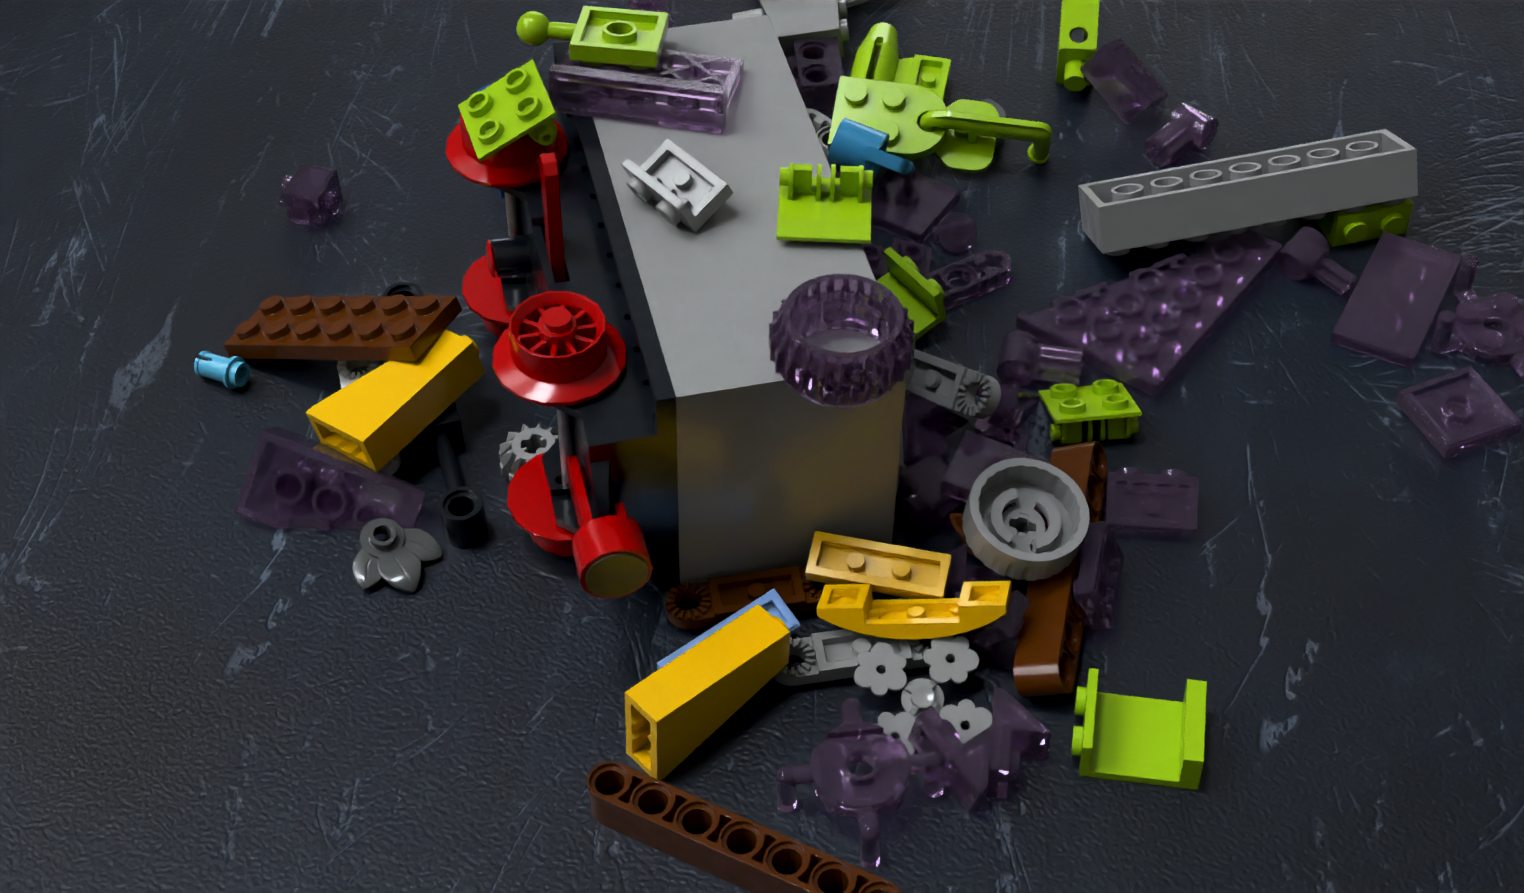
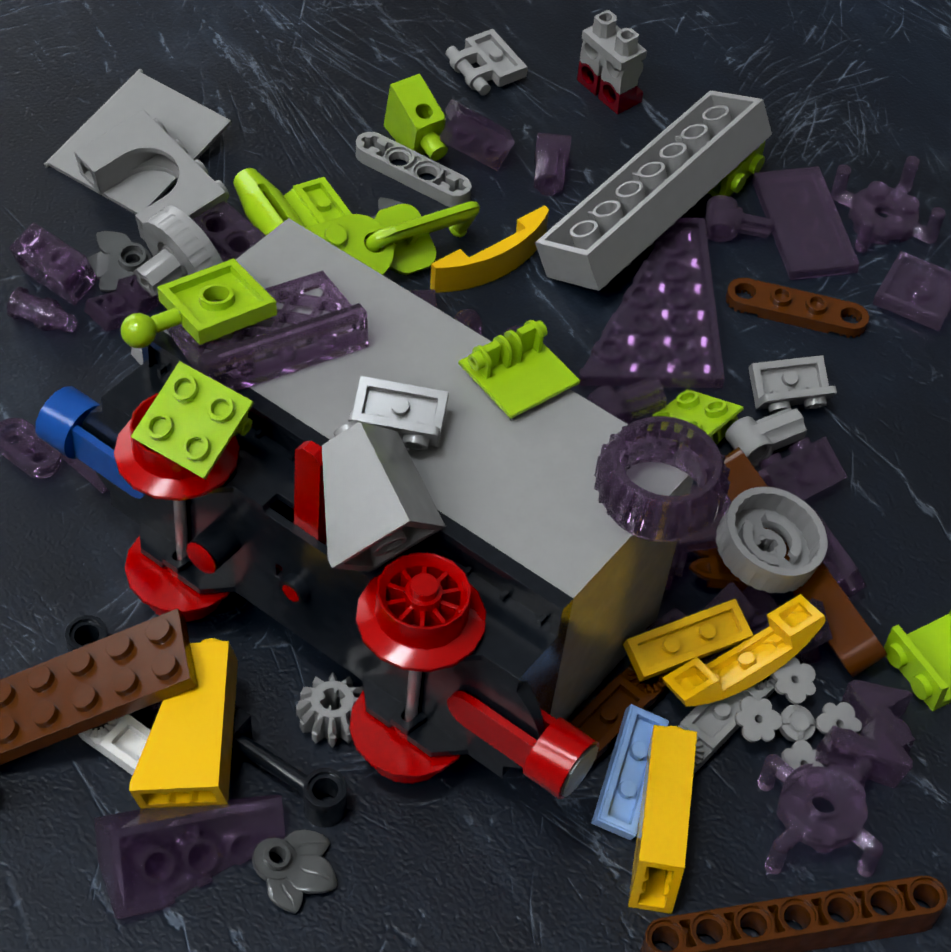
camera: 45 degrees left, 5 degrees up
(578, 227) = (373, 498): none -> light grey slope
(1033, 190) = (462, 272): none -> yellow slope
(1051, 88) = (378, 151): none -> light grey beam
(1134, 447) = (765, 435): none -> light grey piece
(1215, 33) = (495, 59): none -> light grey plate
(1223, 423) = (789, 383): none -> light grey bracket
(1309, 367) = (797, 307): none -> reddish brown plate
(1316, 71) = (613, 60): none -> light grey hips

